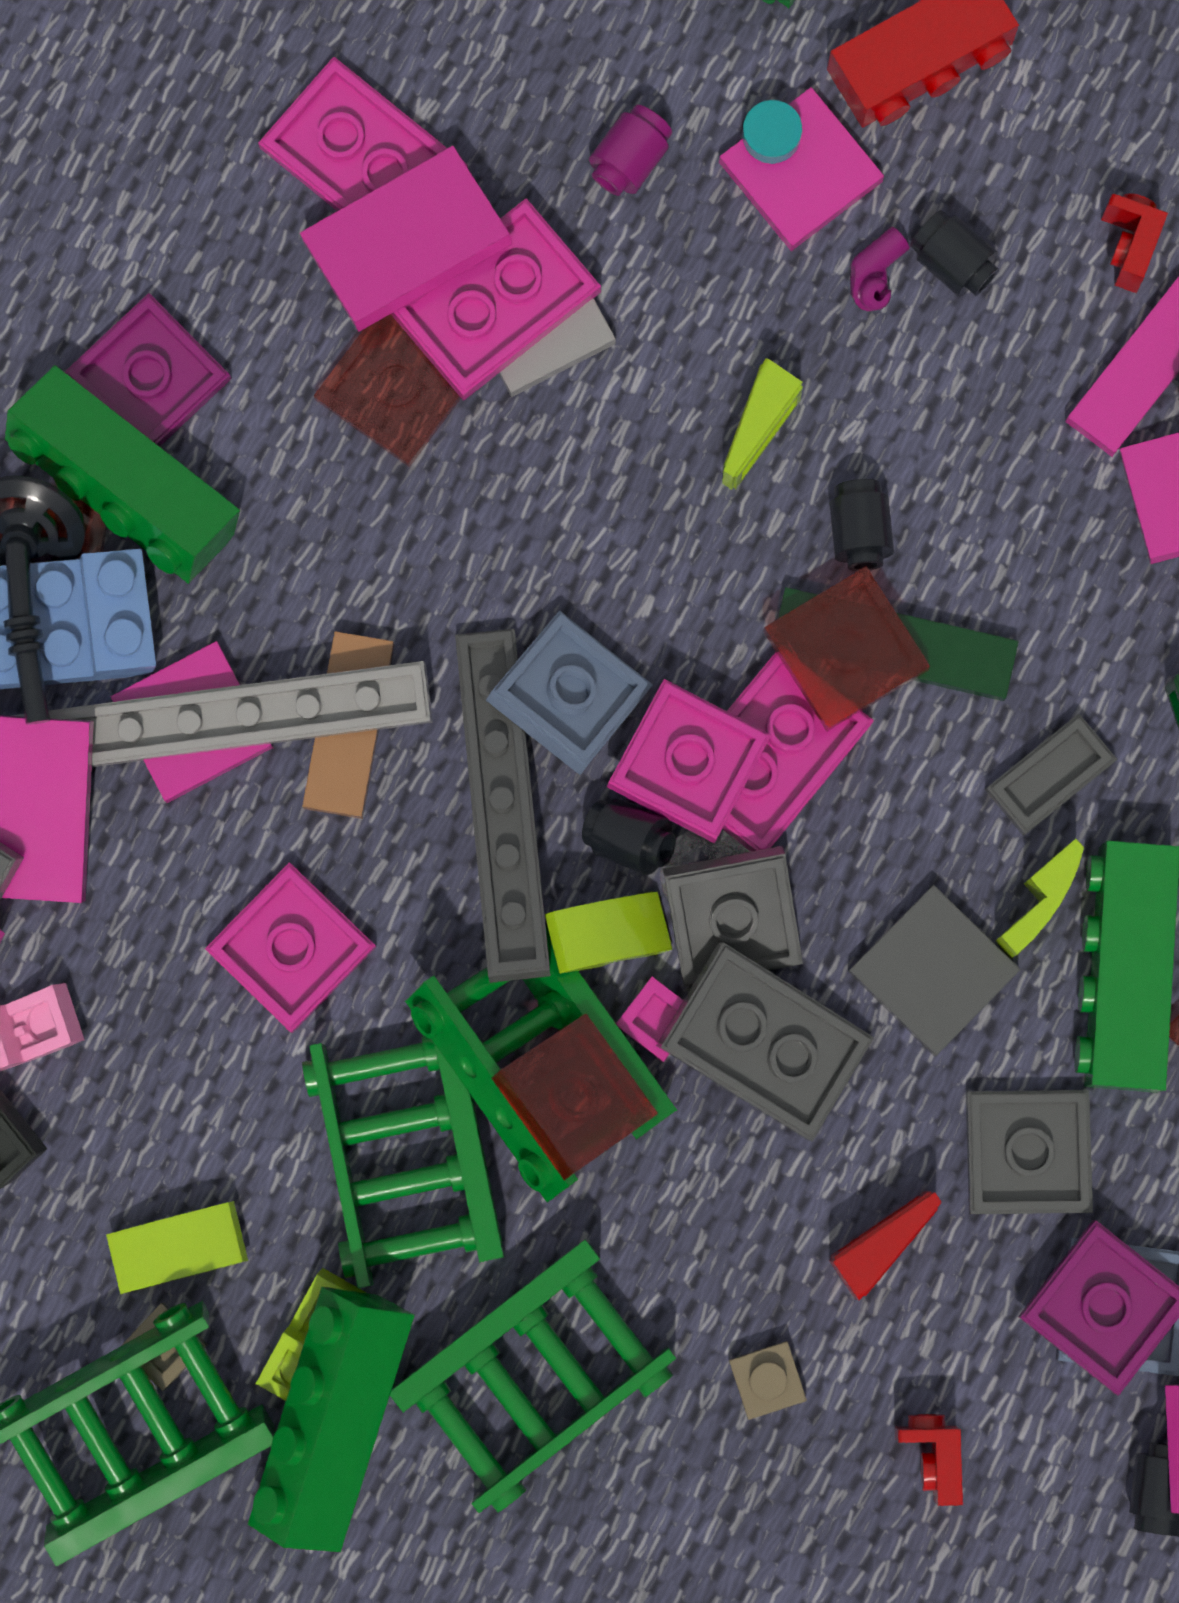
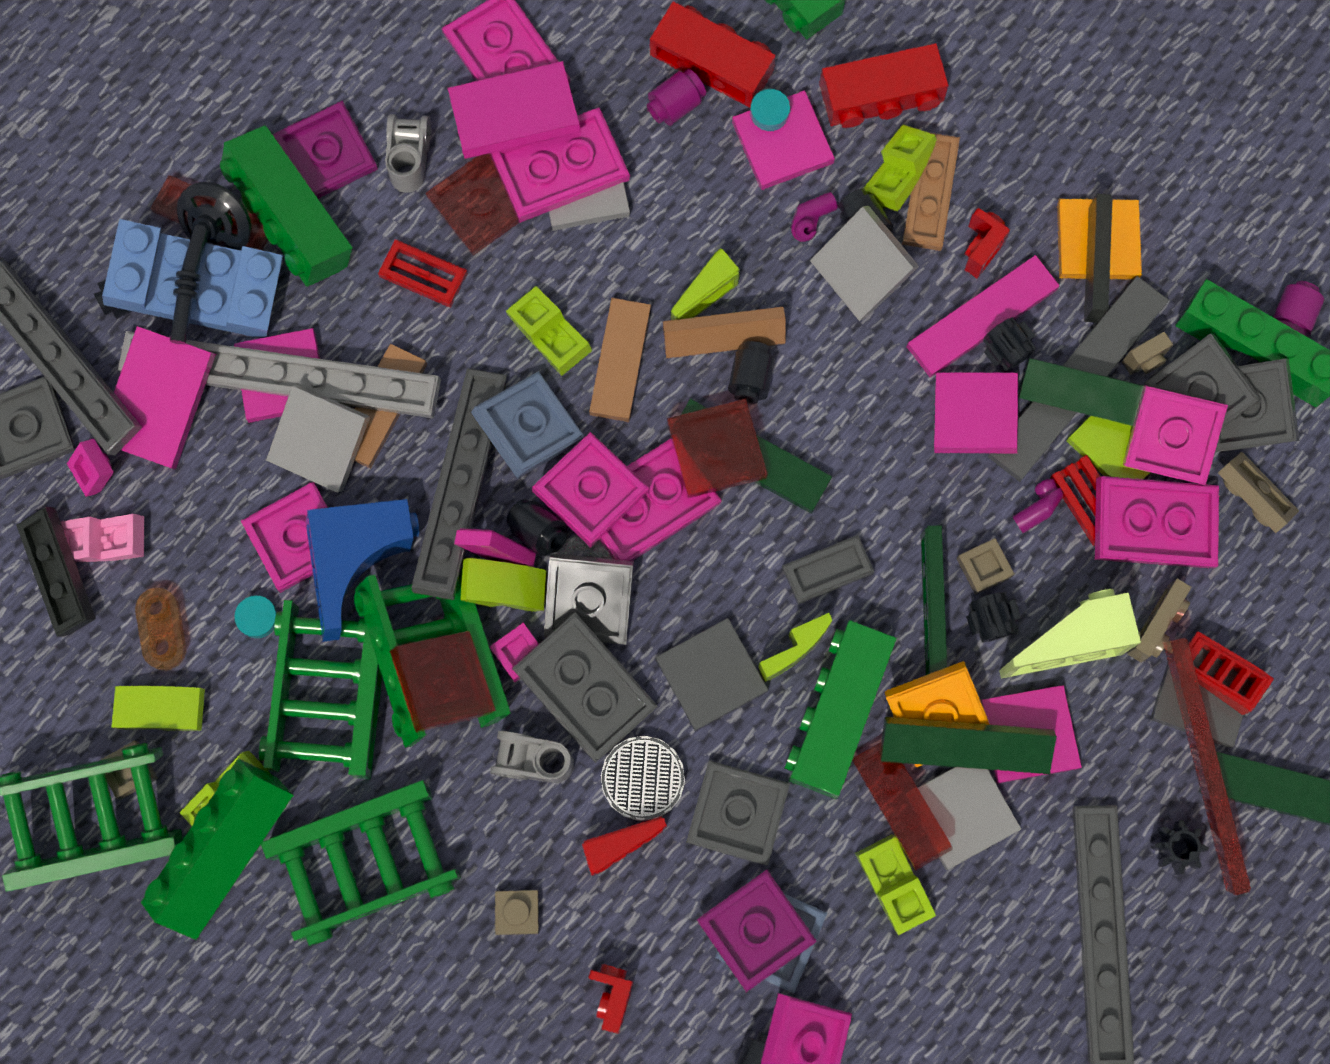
camera: 15 degrees right, 5 degrees down
(142, 1133) = (160, 627): none -> clear orange plate
(265, 334) = (407, 145): none -> light grey piece
(271, 1077) = (255, 616): none -> teal tile
(278, 799) = (317, 438): none -> light grey tile
(346, 537) = (452, 287): none -> red tile
(369, 939) = (346, 544): none -> blue arch
(553, 546) = (548, 330): none -> lime slope
(583, 884) = (494, 546): none -> dark pink tile
(663, 70) = (713, 53): none -> red brick
(668, 559) = (620, 360): none -> medium nougat tile
(716, 1163) = (528, 758): none -> light grey piece
(805, 477) = (723, 332): none -> medium nougat tile
(883, 1143) = (642, 778): none -> tile
(974, 320) = (864, 263): none -> light grey tile
(985, 161) = (903, 165): none -> lime slope
(1034, 183) = (931, 197): none -> medium nougat tile

